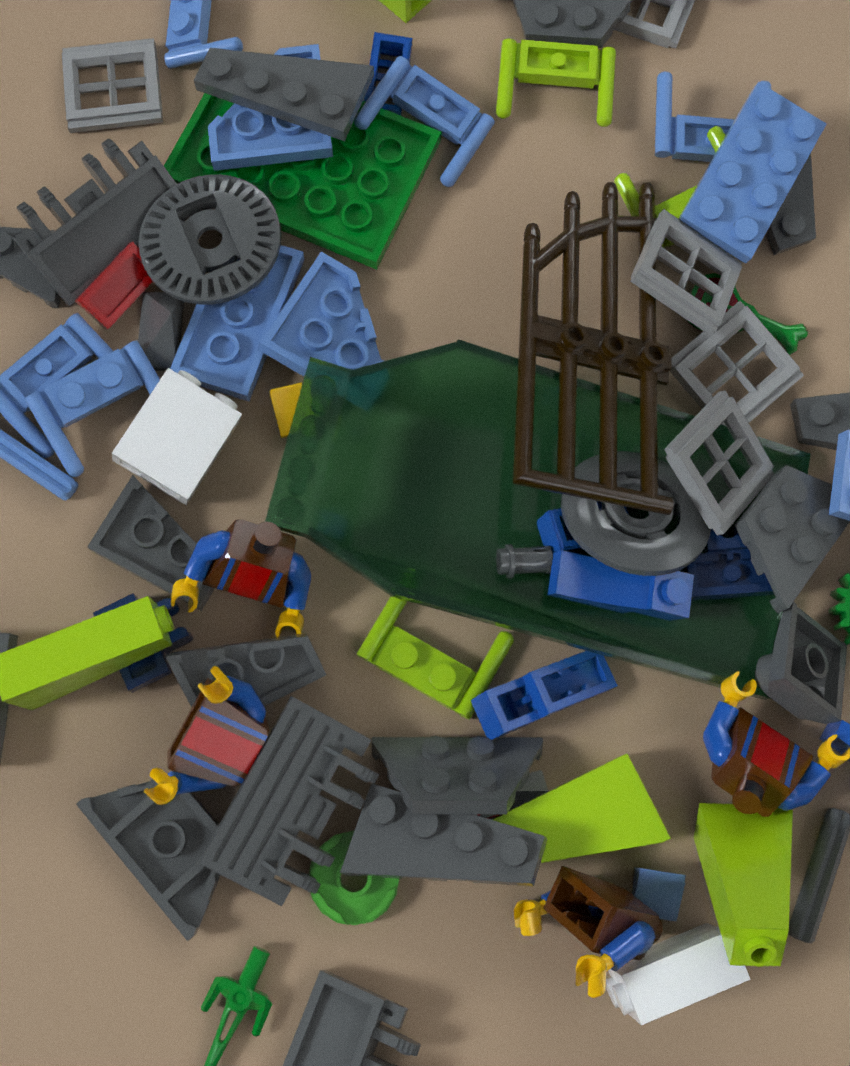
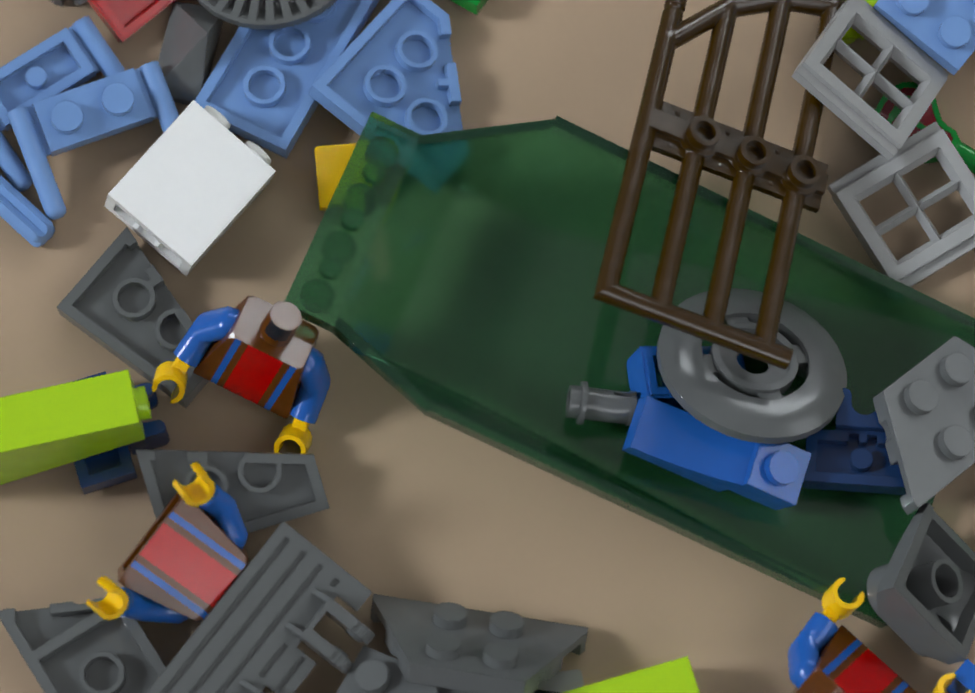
camera: 10 degrees right, 5 degrees down
(425, 666) = (458, 521): lime plate -> none
(542, 693) = (597, 571): blue slope -> none
(743, 490) = (845, 273): light grey piece -> none

